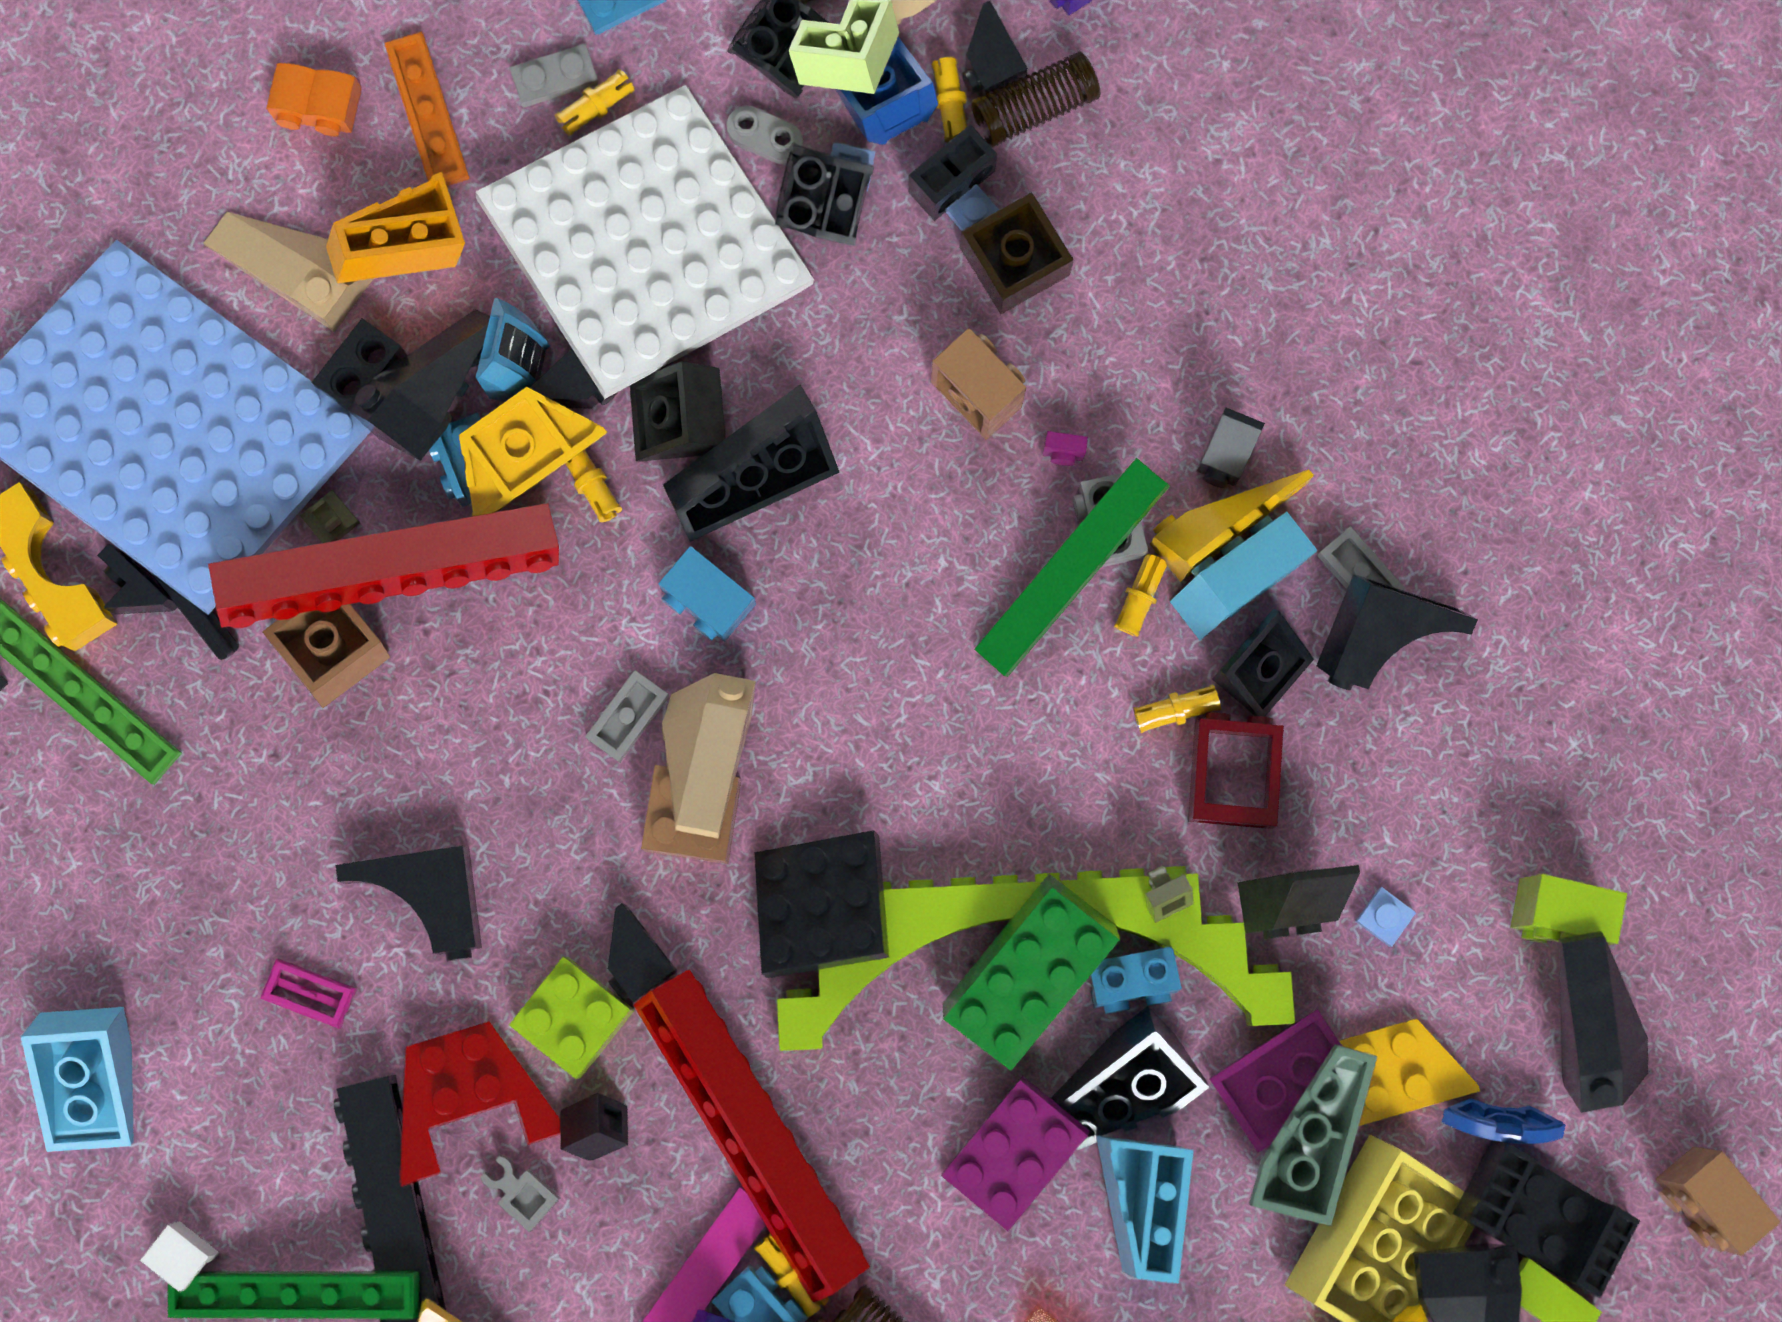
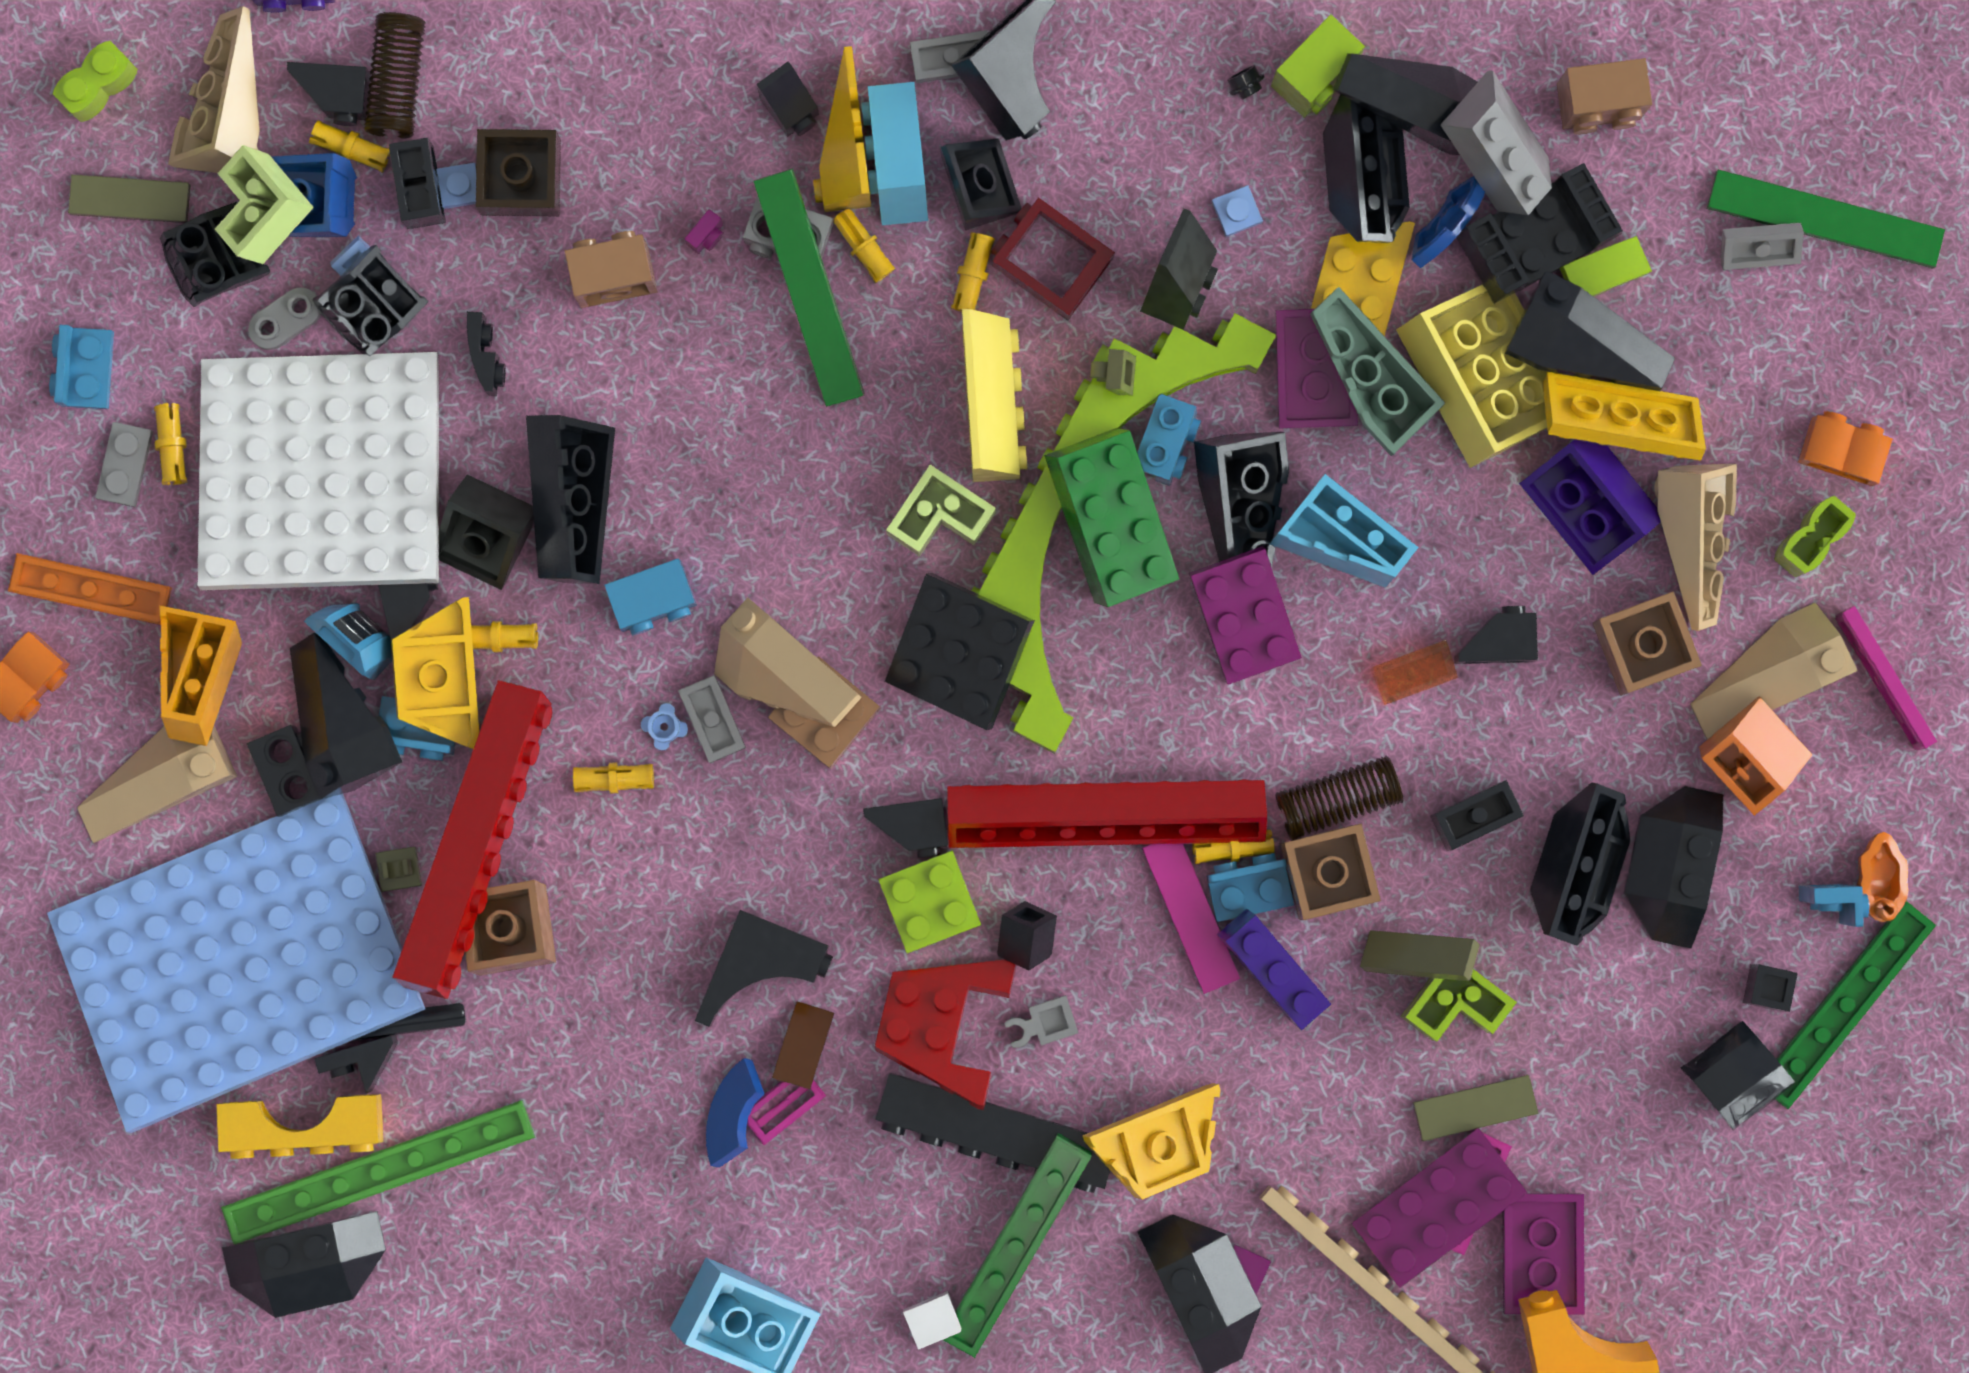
camera: 60 degrees left, 5 degrees up
(272, 948) = (730, 1113): none -> blue tile
(372, 979) = (803, 1045): none -> reddish brown slope
(522, 659) = (613, 778): none -> yellow pin
(593, 666) = (653, 725): none -> light blue plate
(827, 329) = (486, 364): none -> black slope
(945, 799) = (936, 502): none -> yellowish green brick
(1073, 791) = (991, 396): none -> light yellow slope
(1498, 1015) = (1365, 172): none -> black wedge
(1509, 853) = (1246, 82): none -> black plate
(1602, 1130) = (1499, 147): none -> light grey slope

